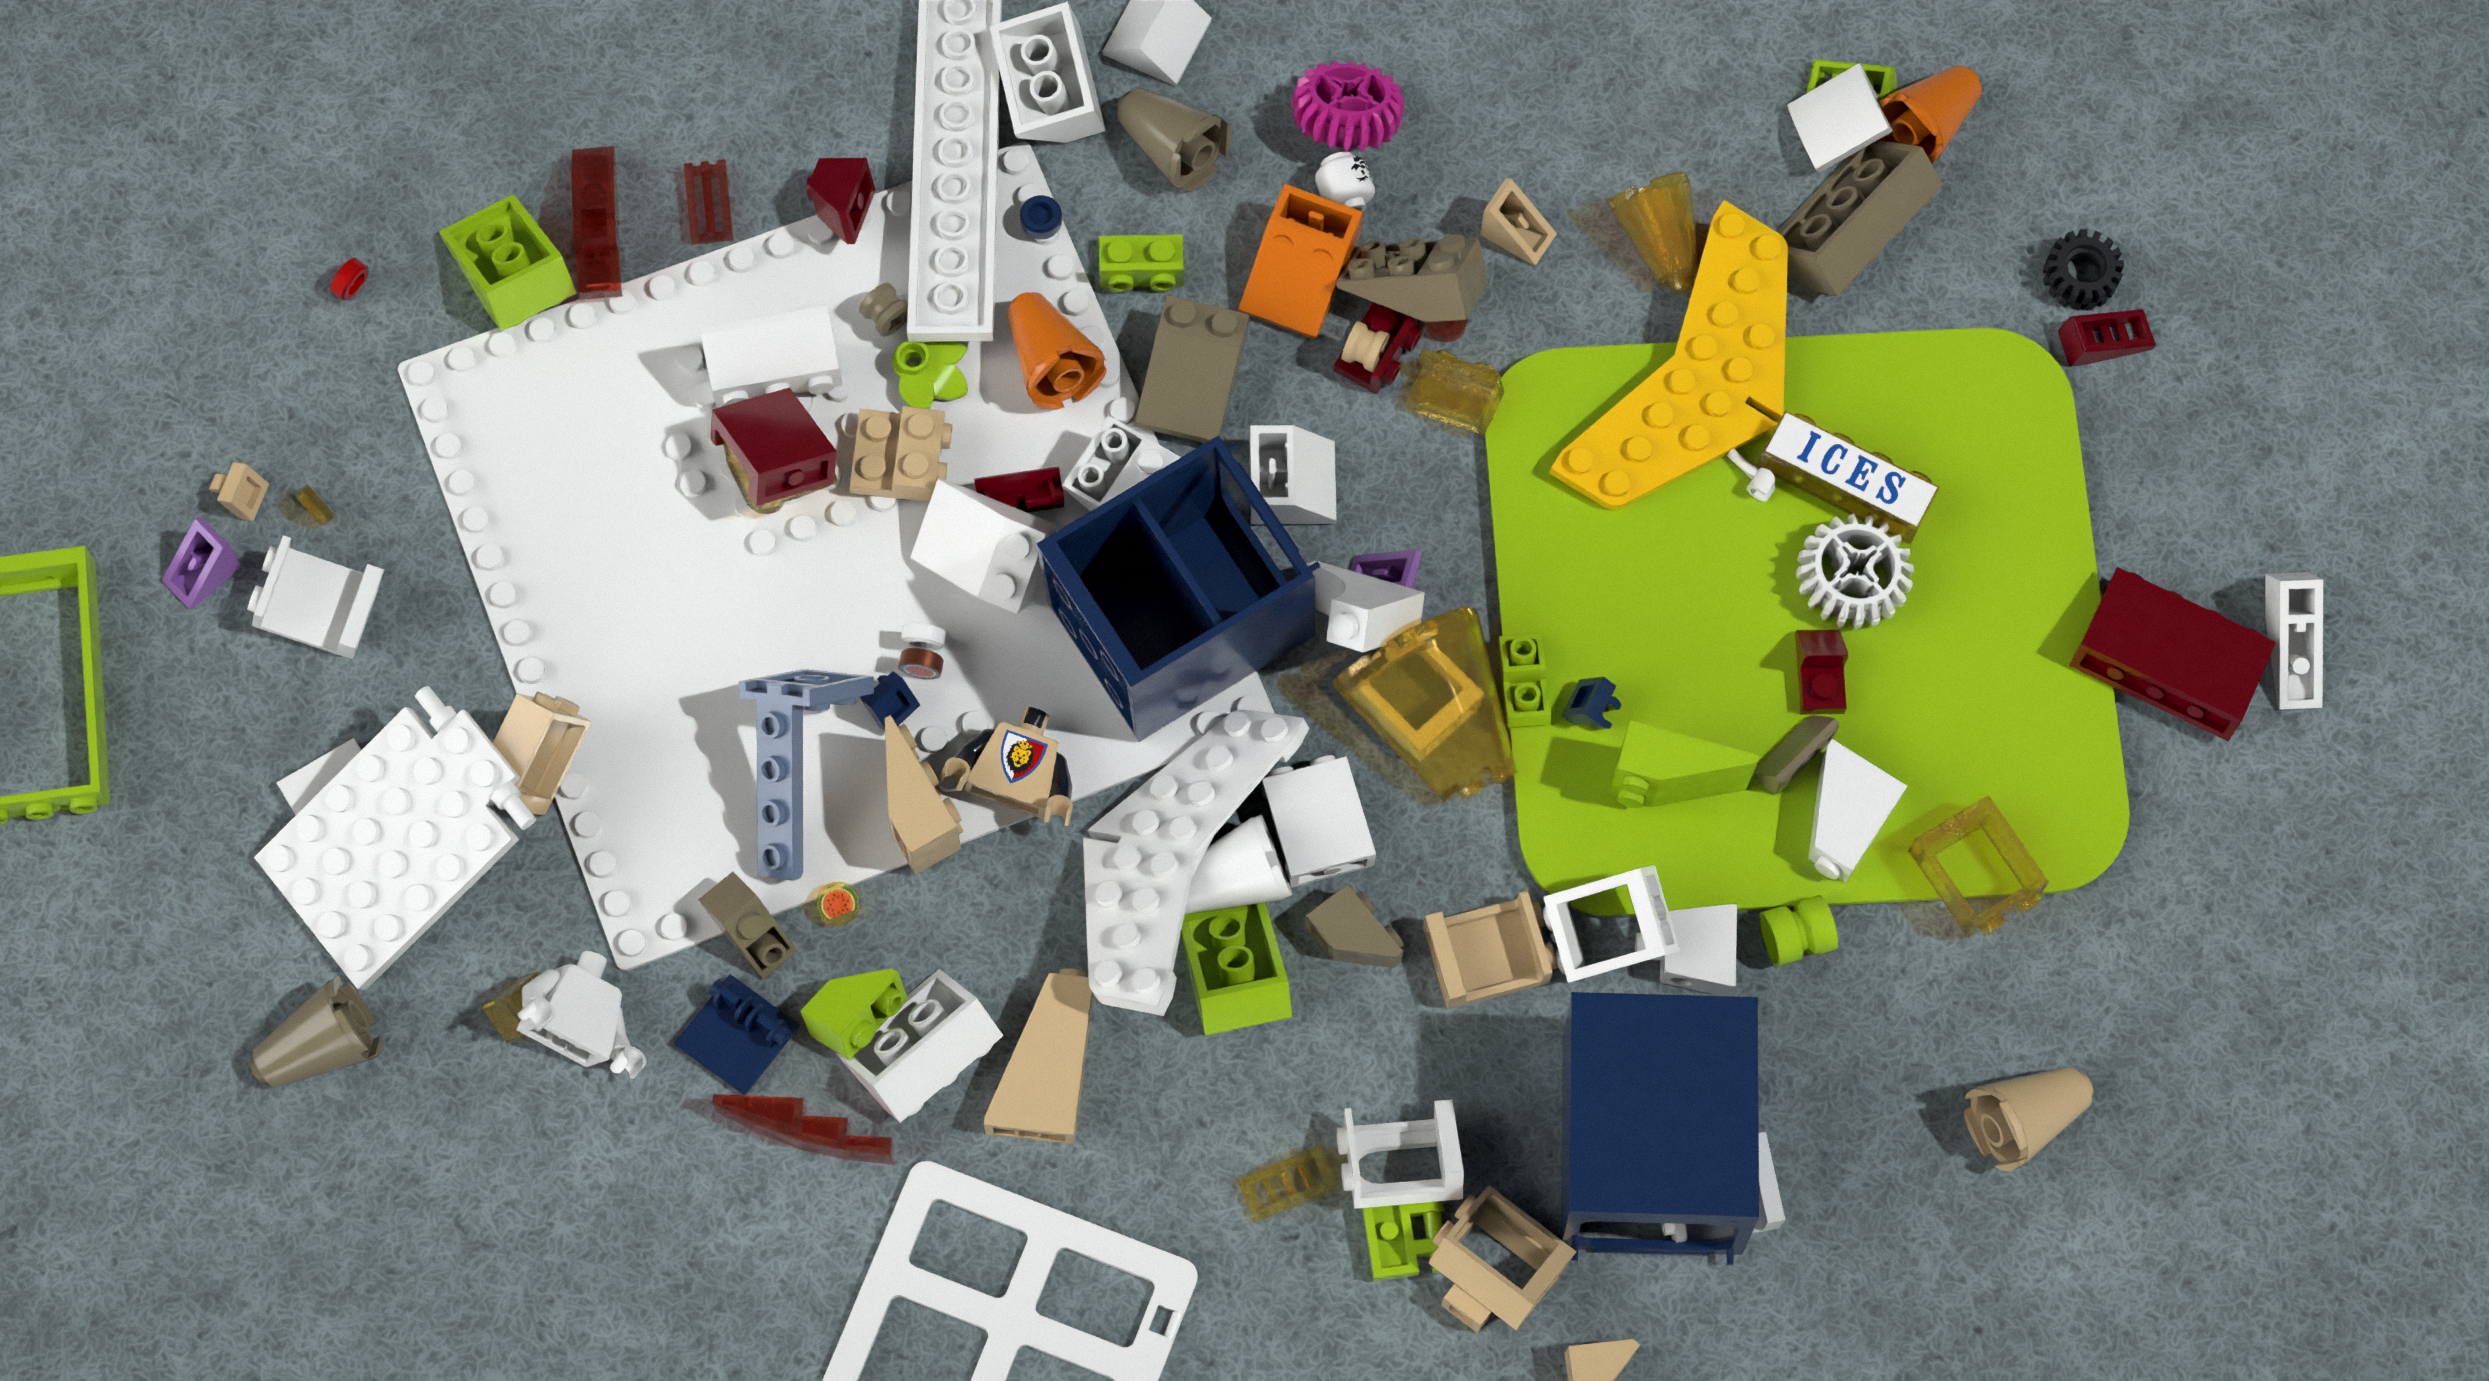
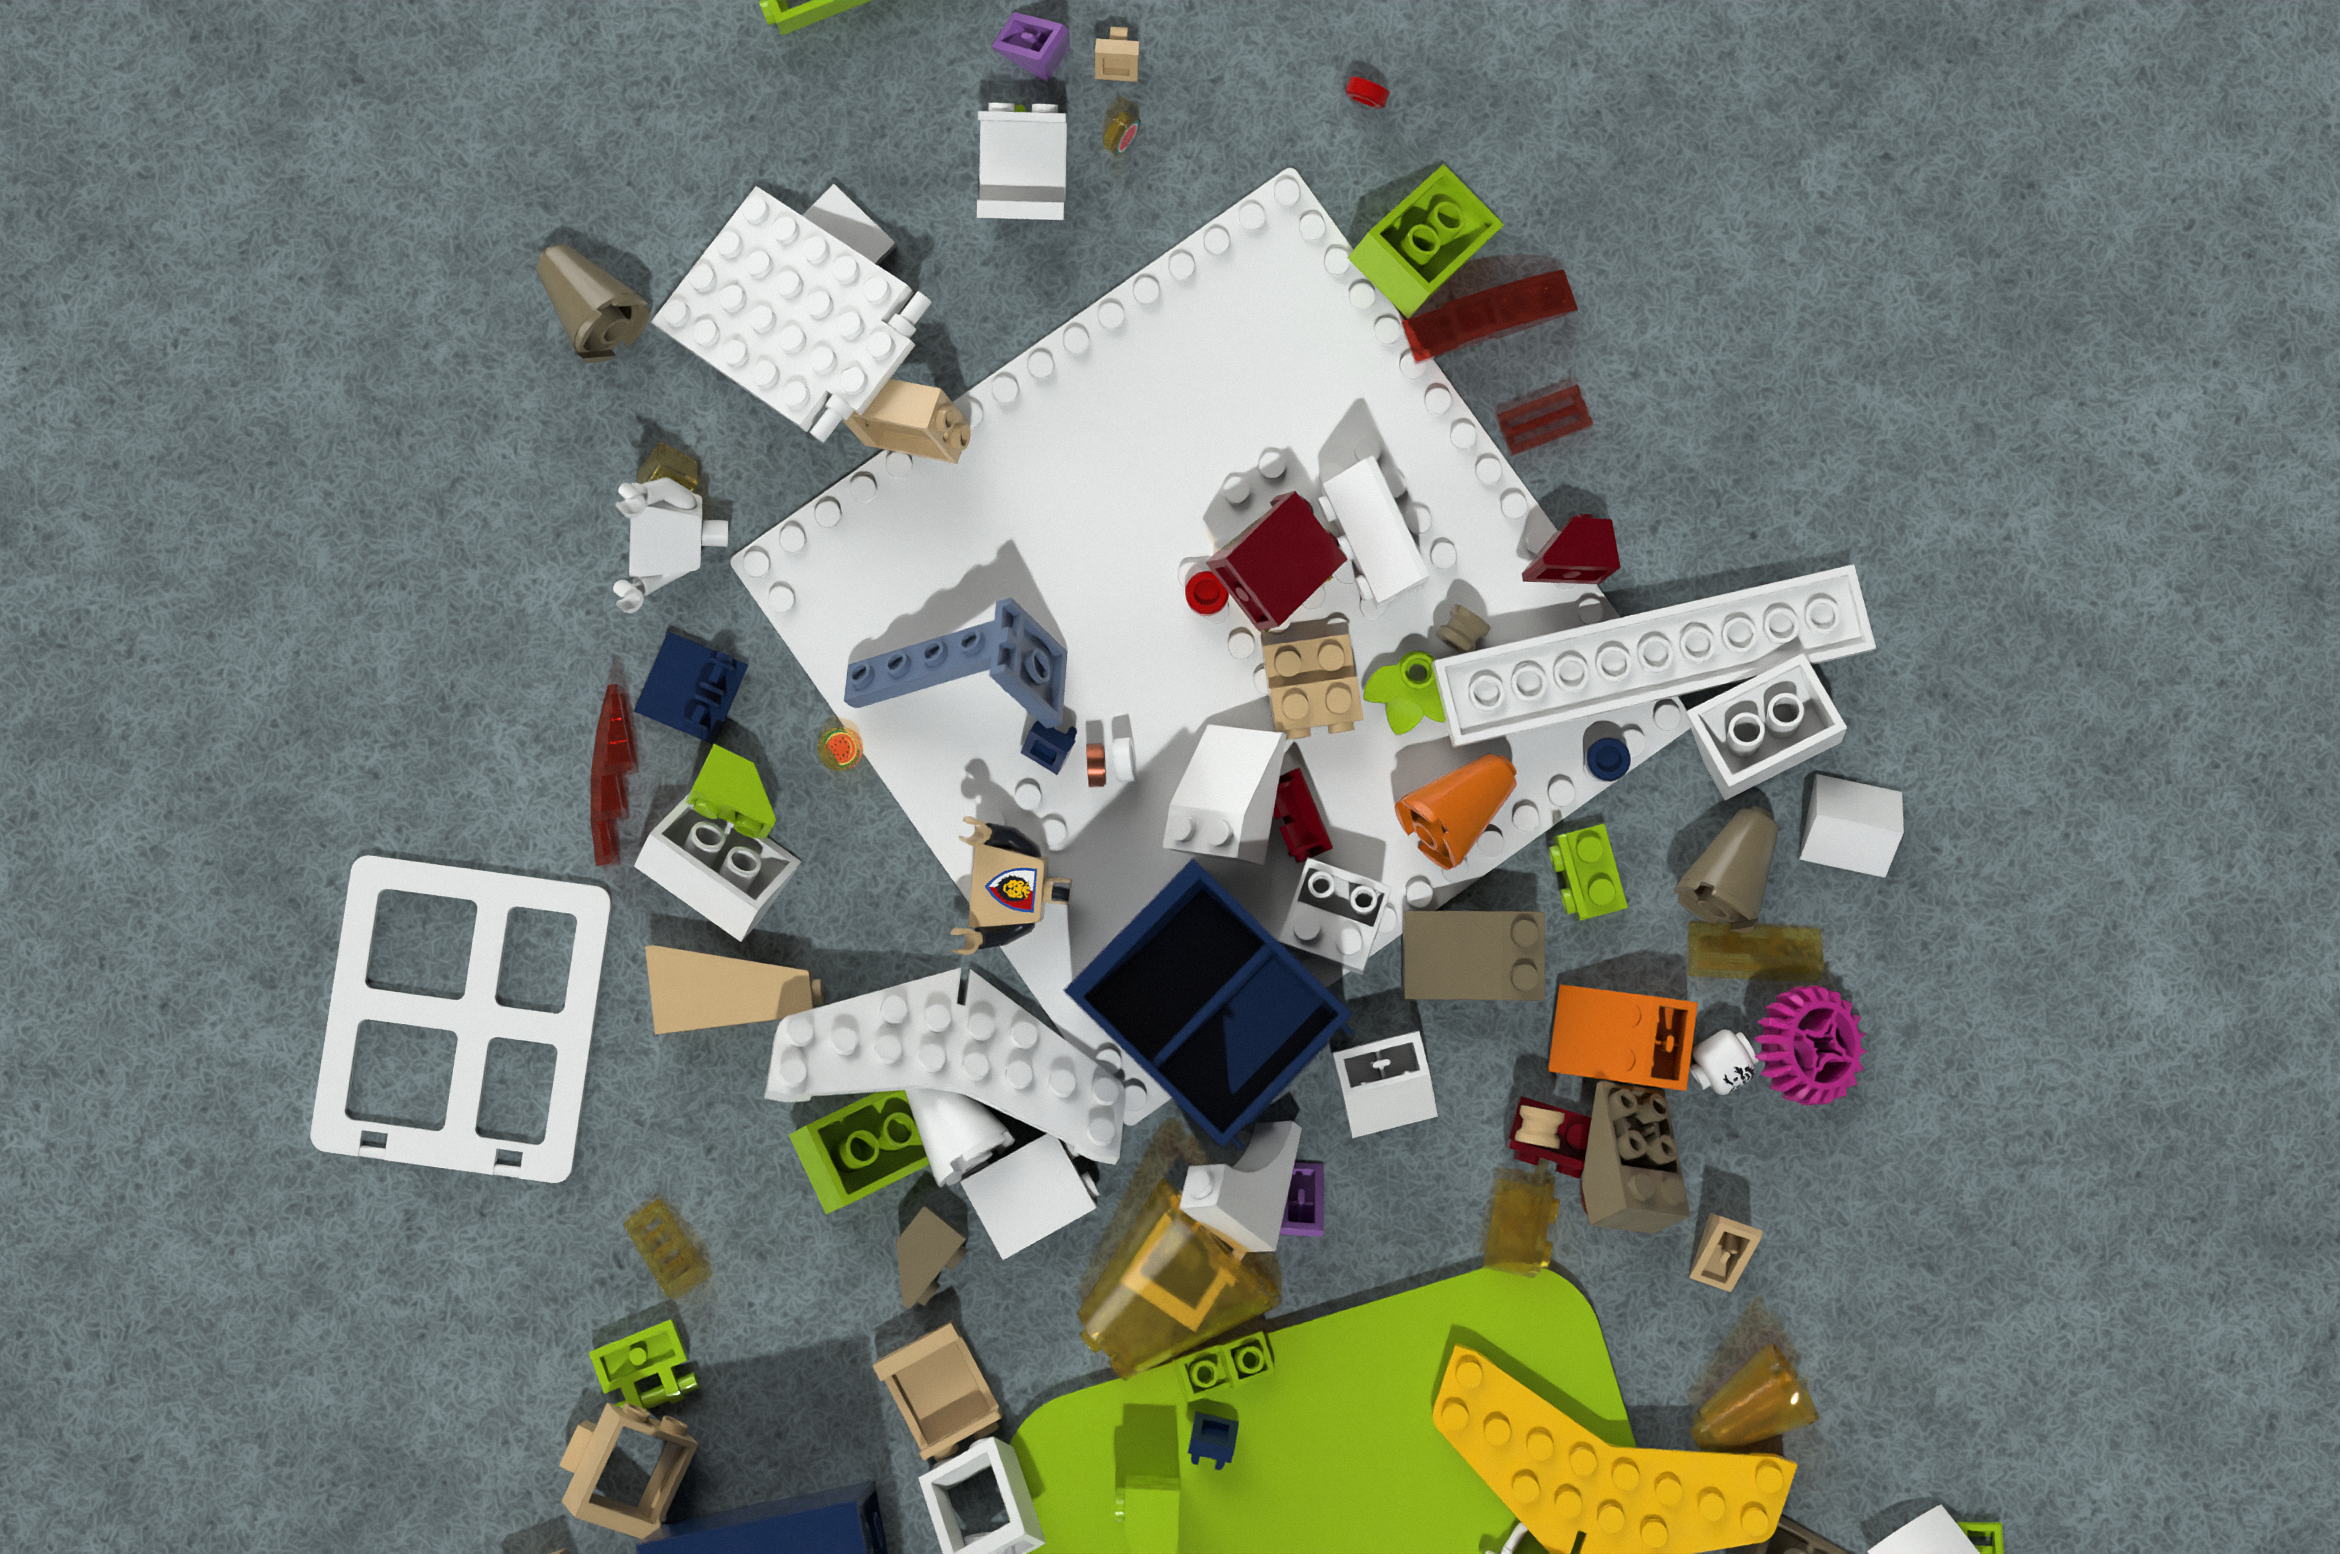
camera: 80 degrees right, 15 degrees up
(748, 924) = (793, 668): dark tan slope -> none
(784, 528) = (1206, 594): none -> red tile
(919, 819) = (934, 801): tan slope -> none
(1253, 141) = (1759, 955): none -> clear yellow slope
(1366, 1139) = (726, 1312): white panel -> none

